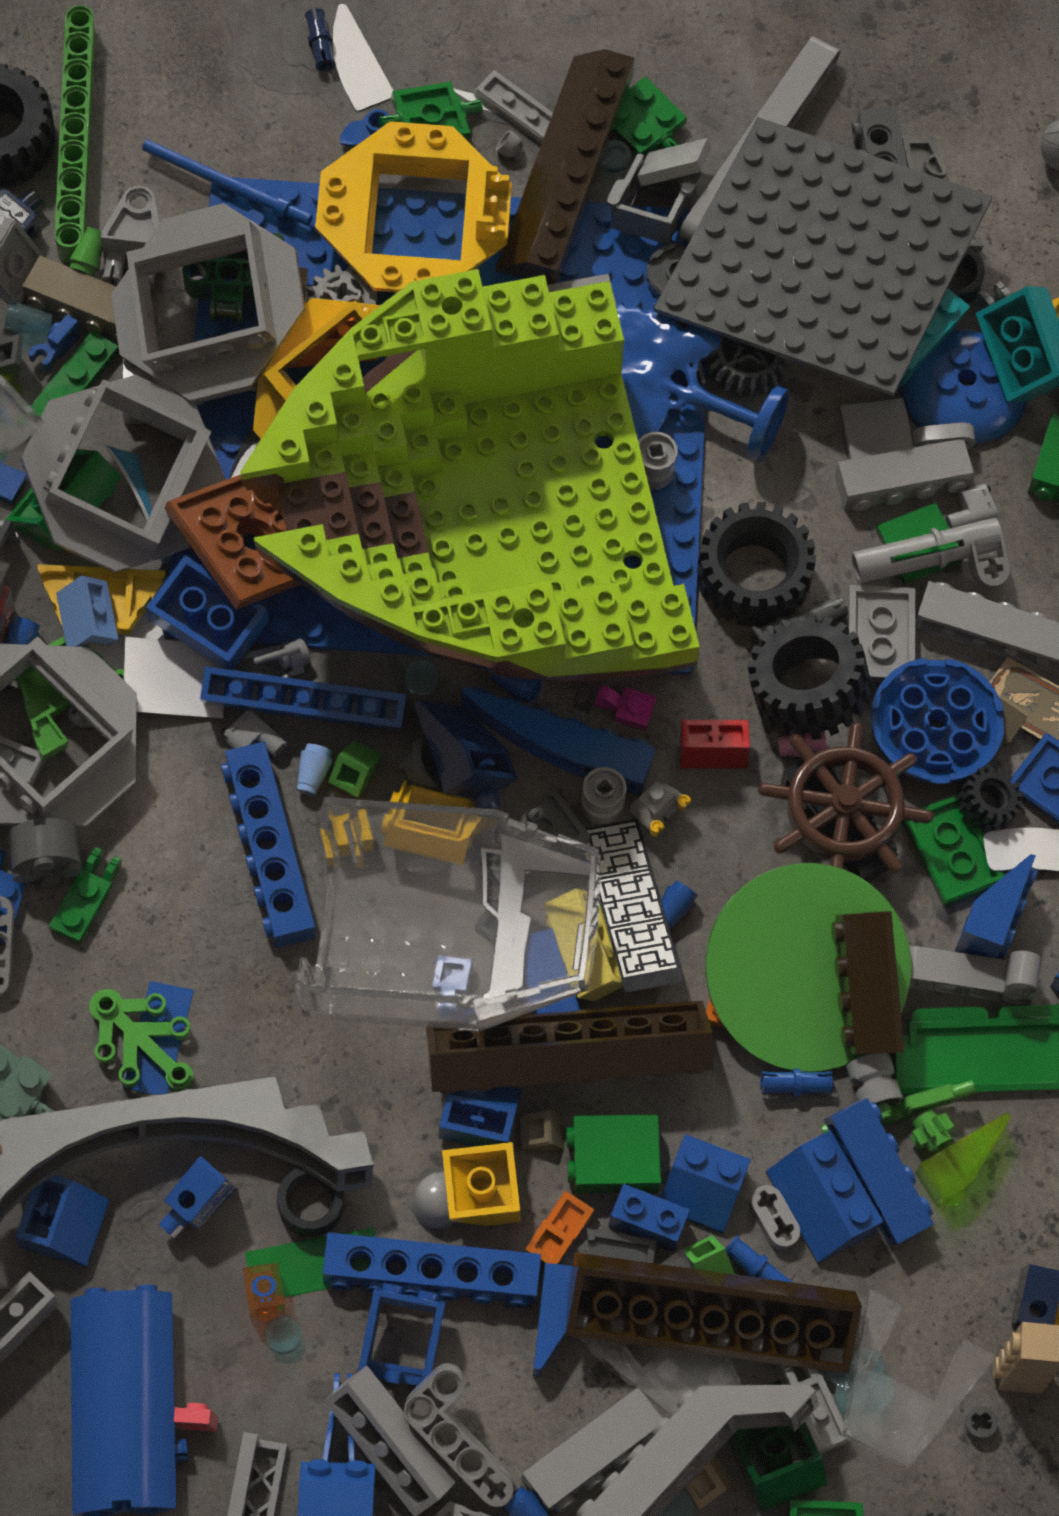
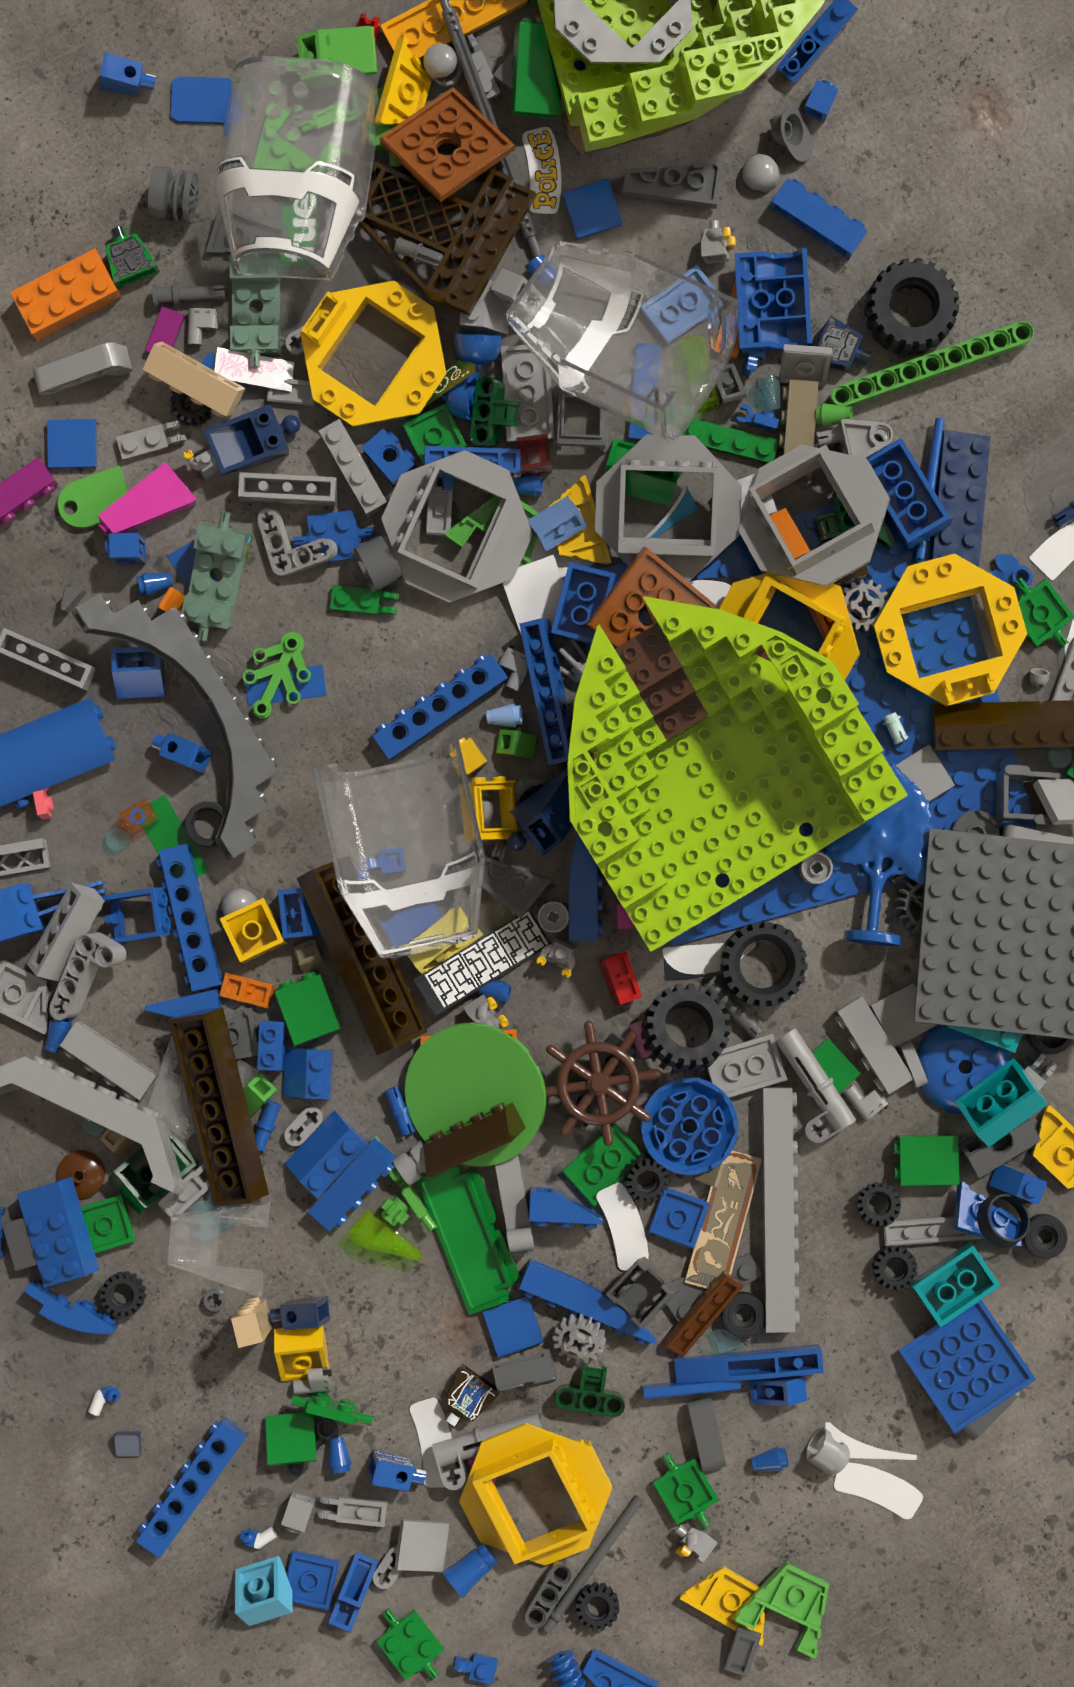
camera: 80 degrees right, 20 degrees up
(248, 186) = (912, 501): none -> blue brick
(249, 153) = (962, 494): none -> dark blue plate
(696, 927) = (482, 1011): none -> light grey piece
(720, 654) = (694, 960): none -> white sticker

